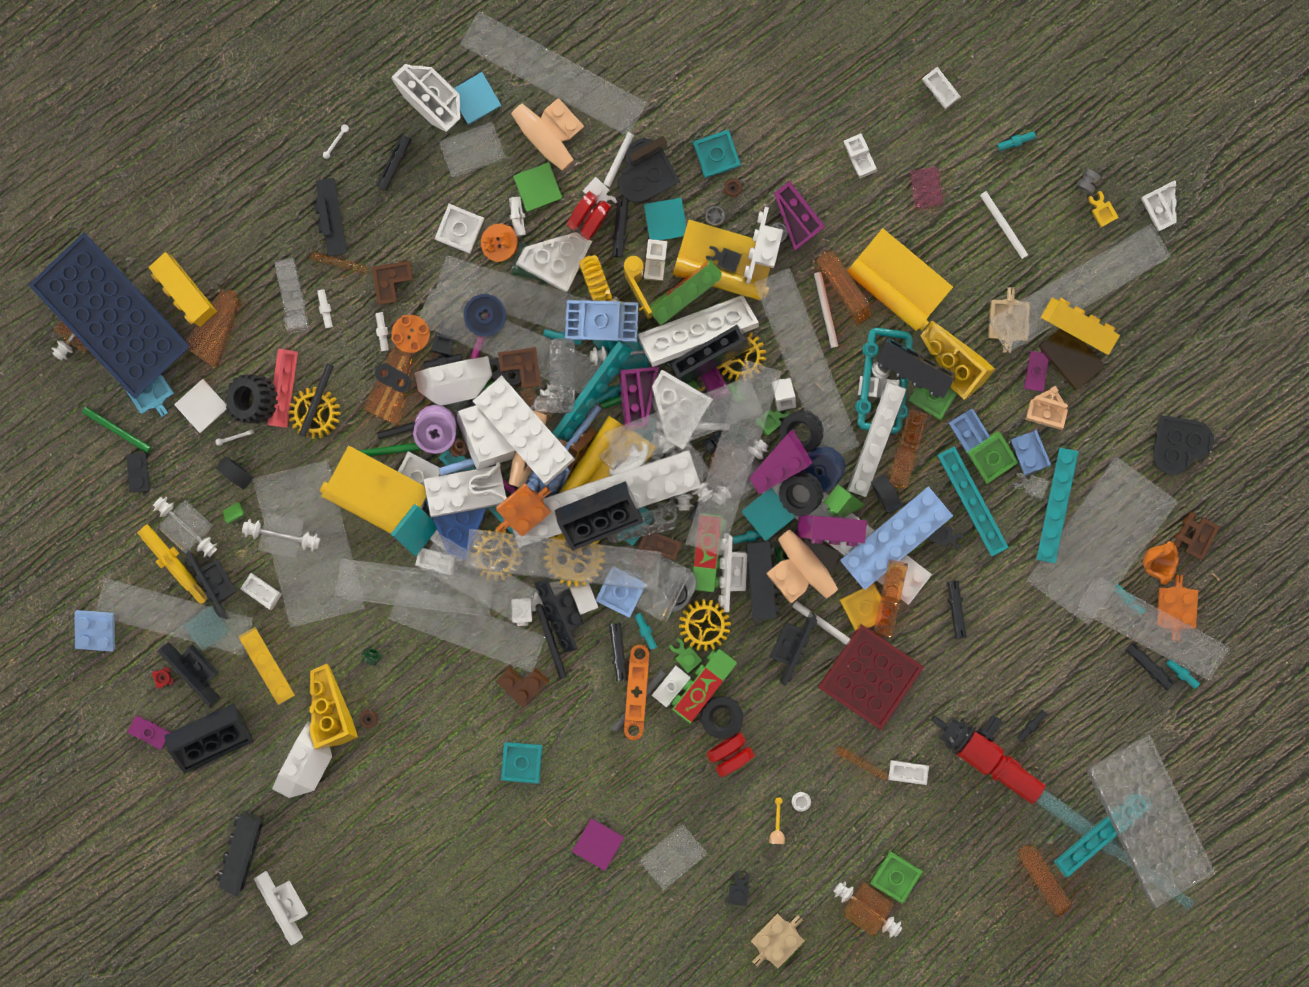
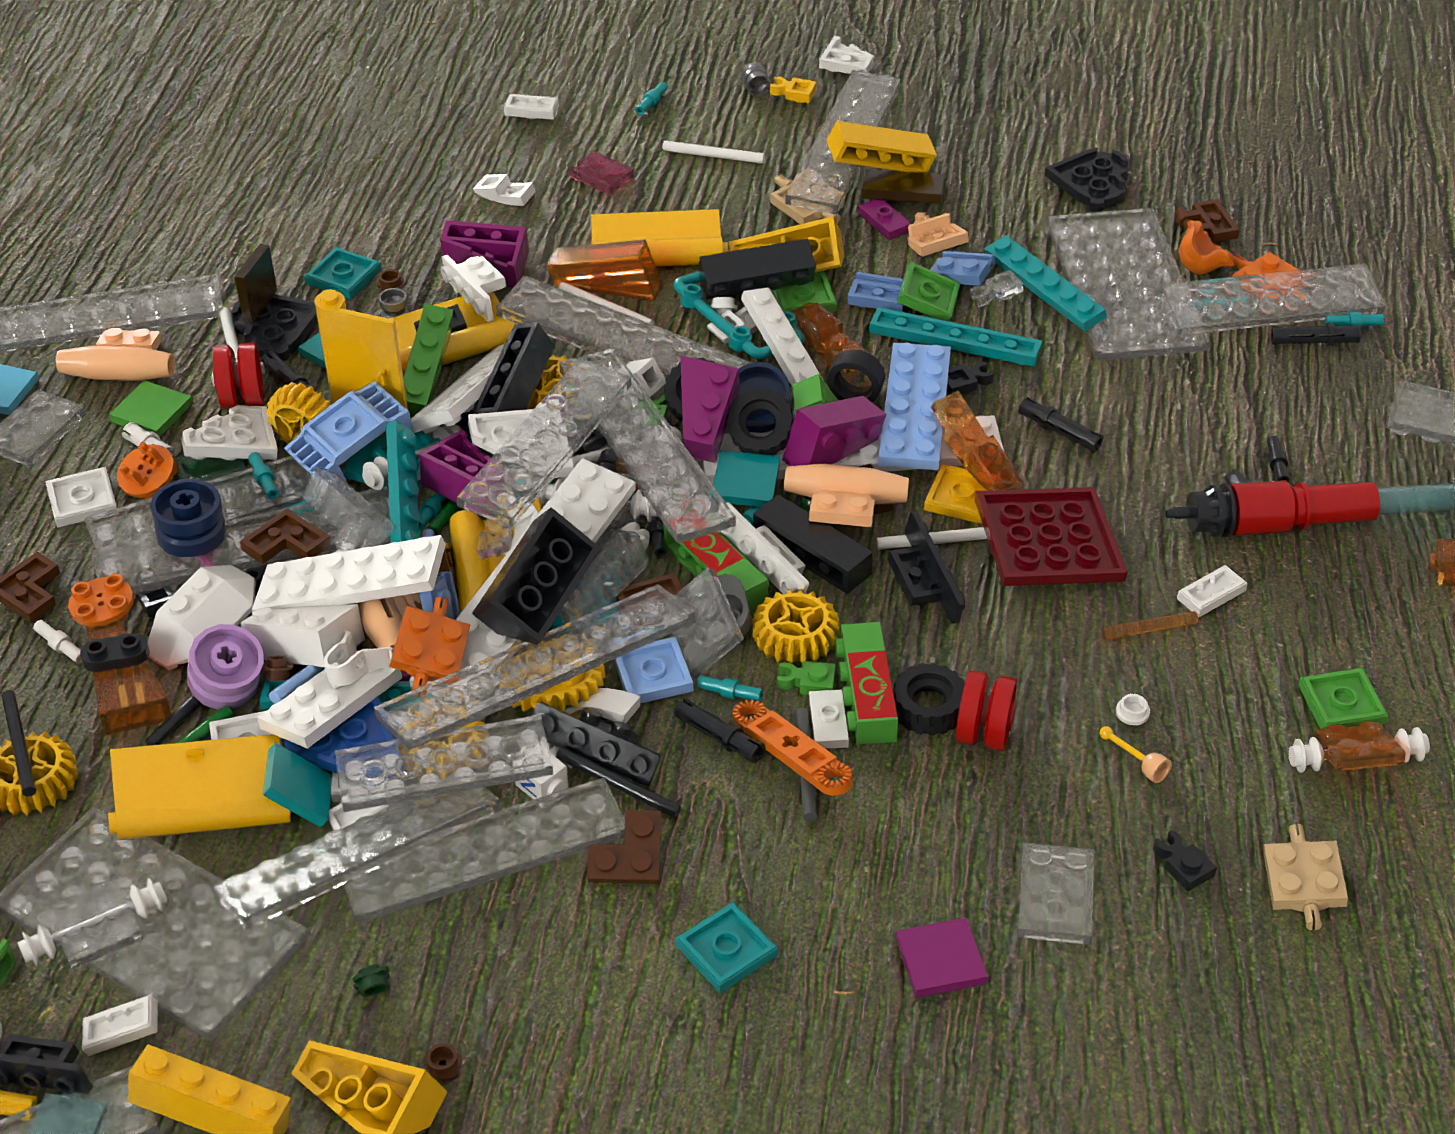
camera: 40 degrees left, 45 degrees down
(547, 304) = (263, 475): none -> teal bar

